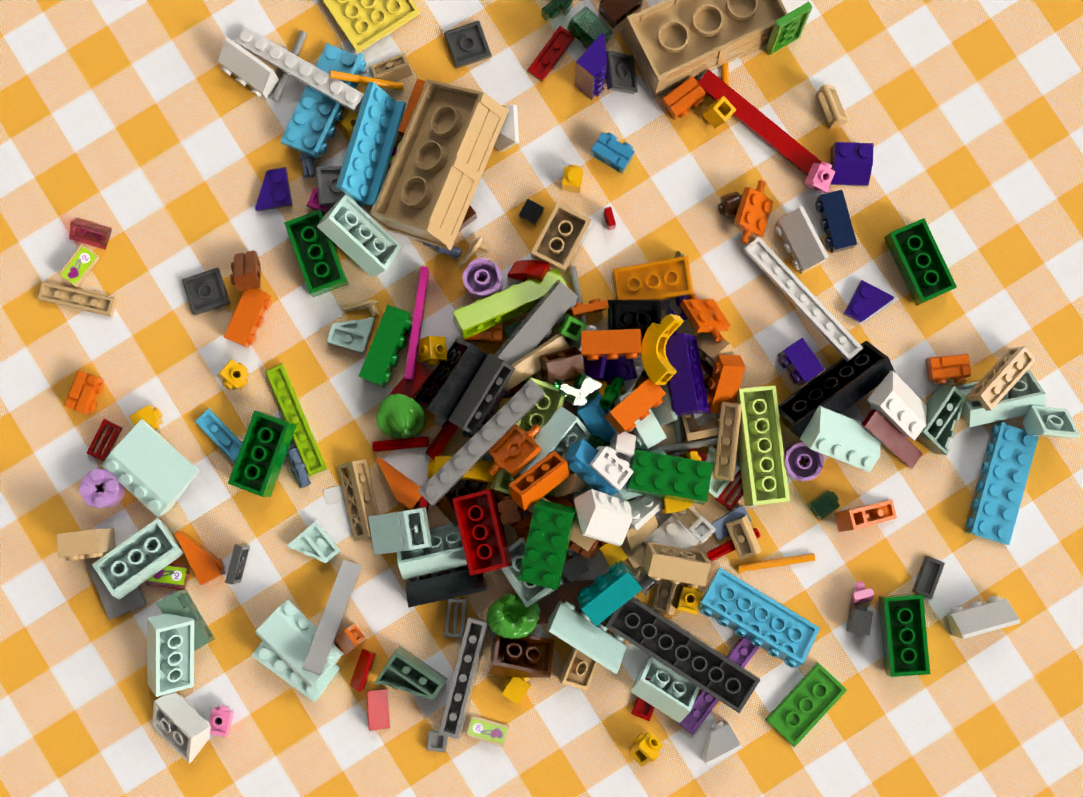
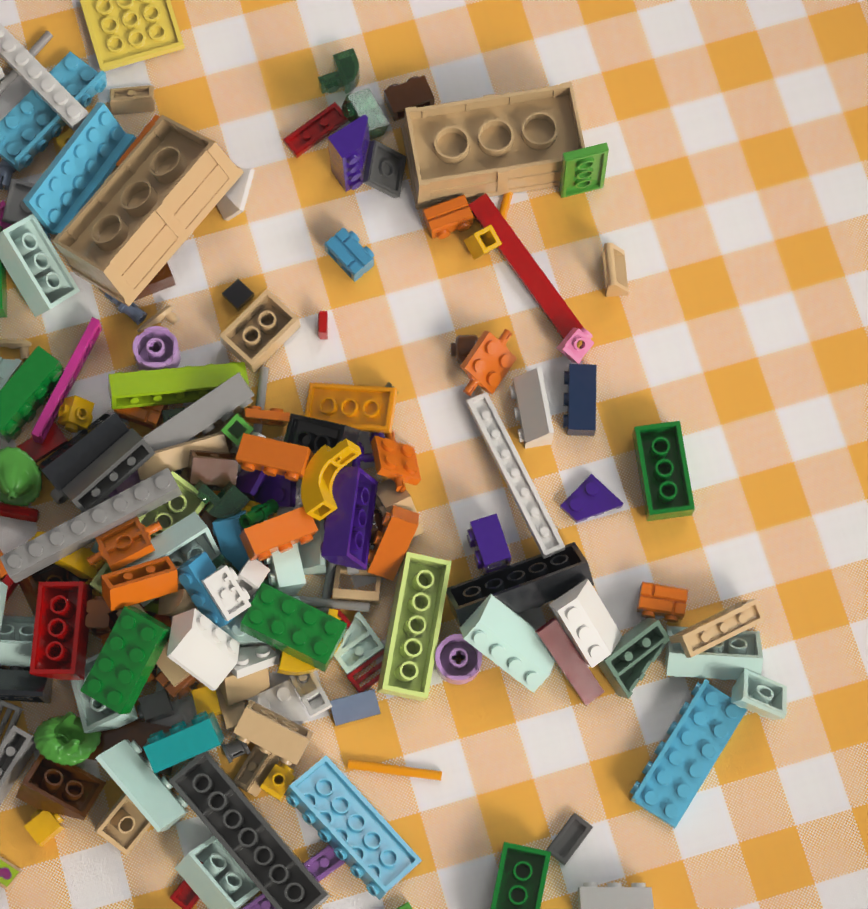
camera: 15 degrees right, 10 degrees down
(364, 80) = (94, 99): light orange bar -> none
(441, 439) = (53, 516): red tile -> none
(467, 44) = (226, 95): dark grey tile -> none
(528, 269) = (212, 354): red slope -> none
(572, 178) = (294, 270): yellow brick -> none
(725, 548) = (350, 734): red axle -> none
(727, 441) = (376, 609): tan tile -> none
(743, 537) = (363, 727): tan slope -> none
(823, 504) = (470, 716): clear green brick -> none
(851, 163) = (617, 340): dark purple slope -> none
(859, 620) = (471, 864): dark grey brick -> none
(861, 594) = (482, 835): bright pink tile -> none
(865, 516) = (514, 744): orange slope -> none

